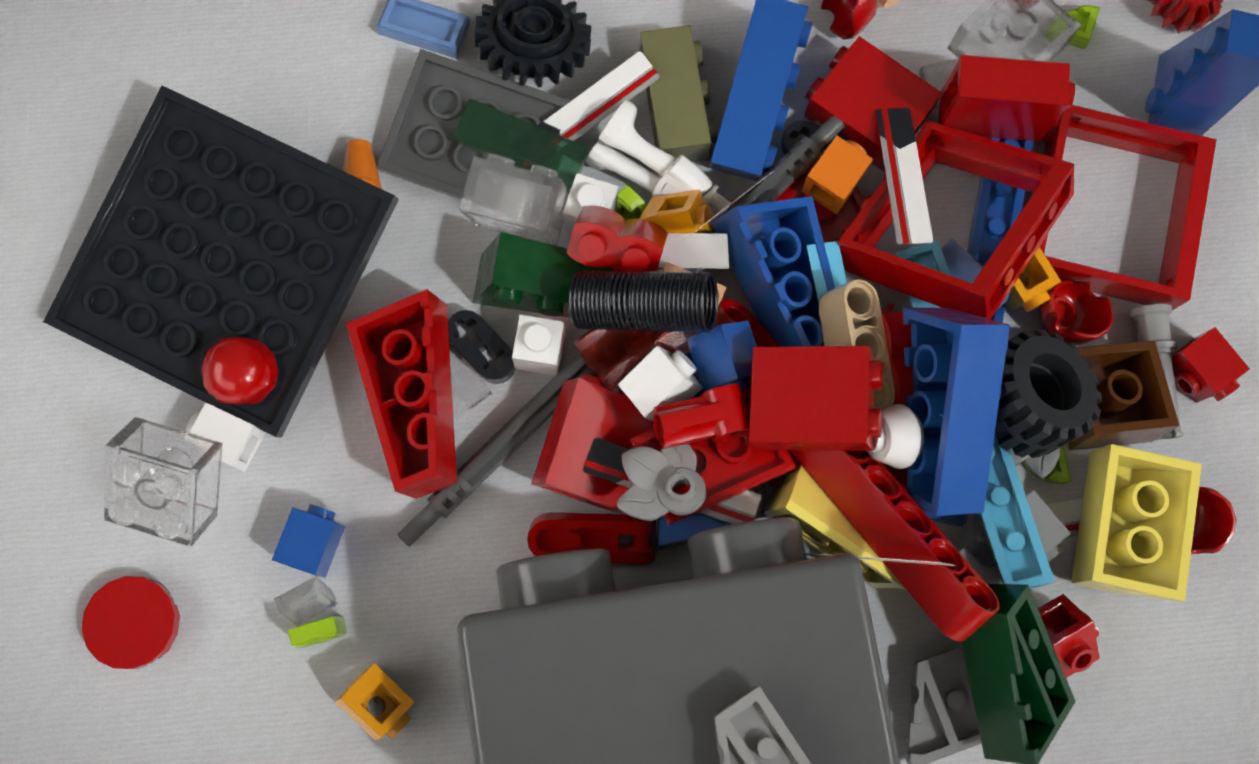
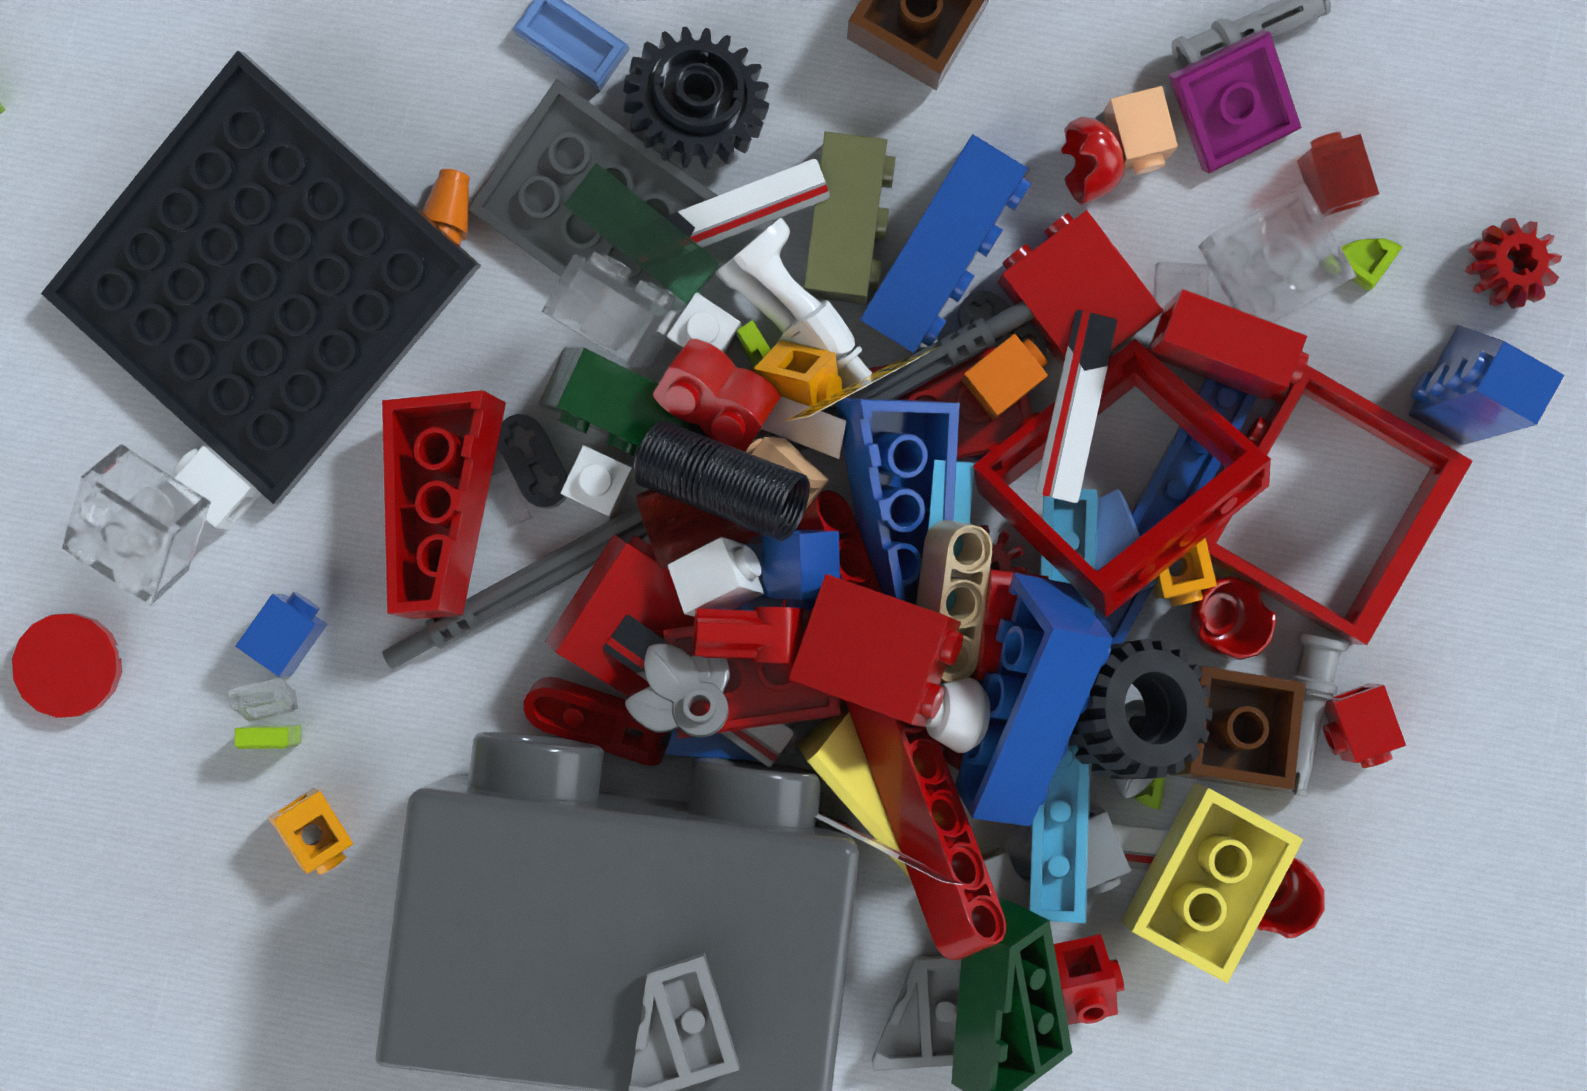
camera: 20 degrees right, 10 degrees up
(239, 370) = (249, 419): red hair -> none

